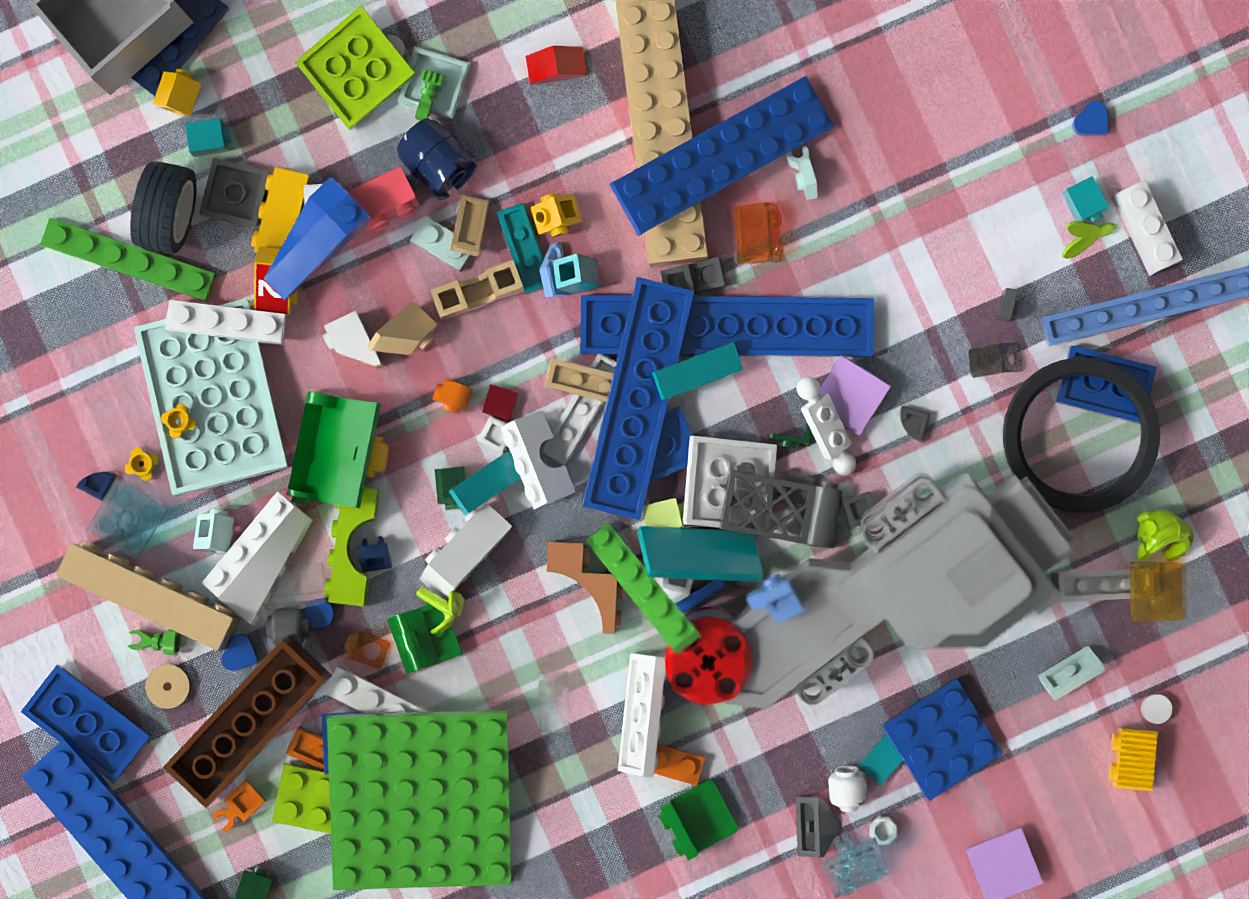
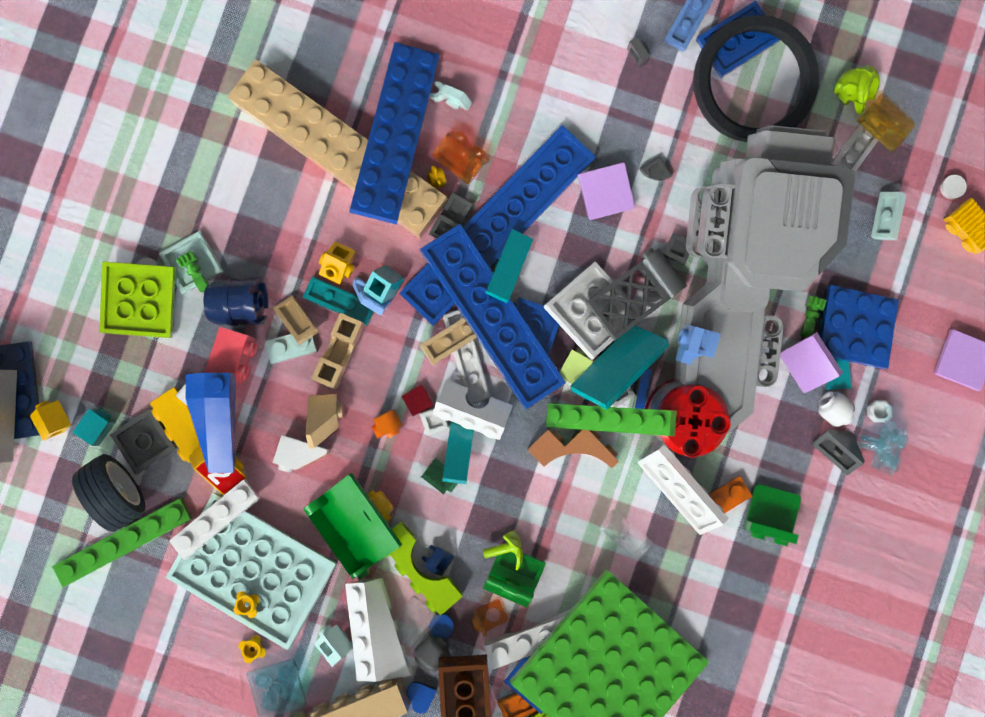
camera: 50 degrees left, 0 degrees up
(97, 484) = (239, 687): dark blue tile -> none
(464, 550) = (485, 504): white wedge -> none
(556, 64) = (248, 181): red slope -> none
(717, 230) = (436, 177): none -> yellow plate
(792, 442) = (602, 251): dark green bracket -> none
(798, 496) = (637, 276): dark grey tile -> none
(826, 426) = (612, 221): white plate -> none
(866, 725) = (810, 363): none -> lavender tile
(914, 687) = (814, 304): none -> bright green piece
(994, 359) = (663, 90): clear smoke bracket -> none

